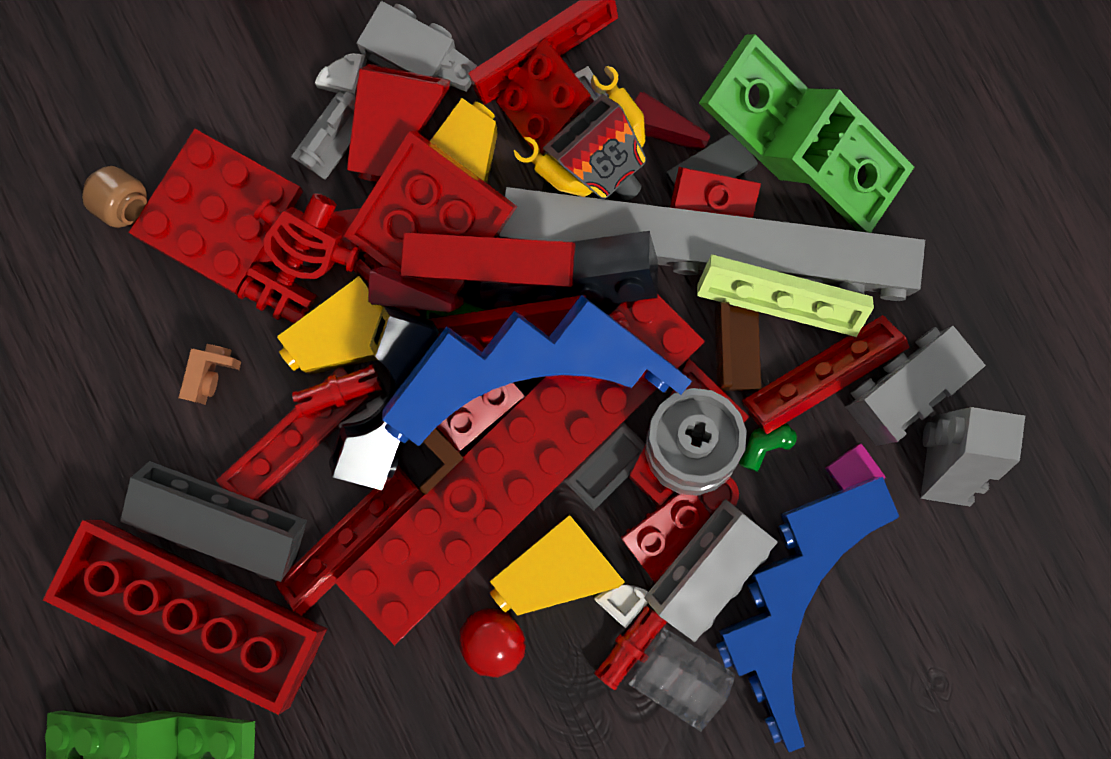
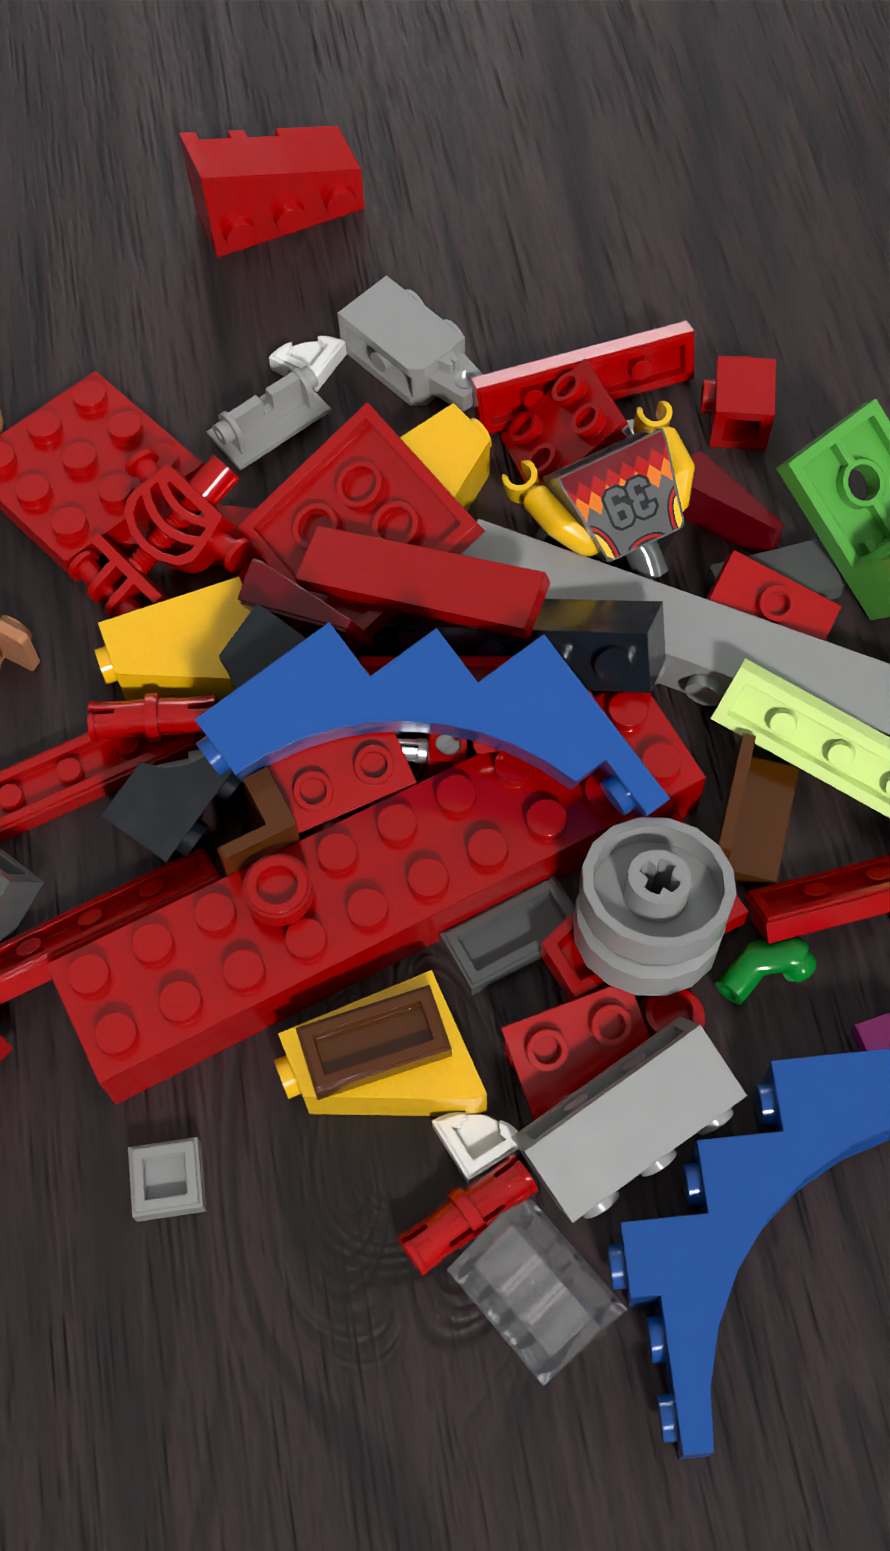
camera: 20 degrees right, 20 degrees down
(385, 111) = (341, 379): red slope -> none
(448, 677) = (166, 1179): none -> light grey tile
(492, 643) = (252, 1145): red hair -> none
(549, 573) = (374, 1042): none -> reddish brown tile
(656, 34) = (740, 402): none -> red brick

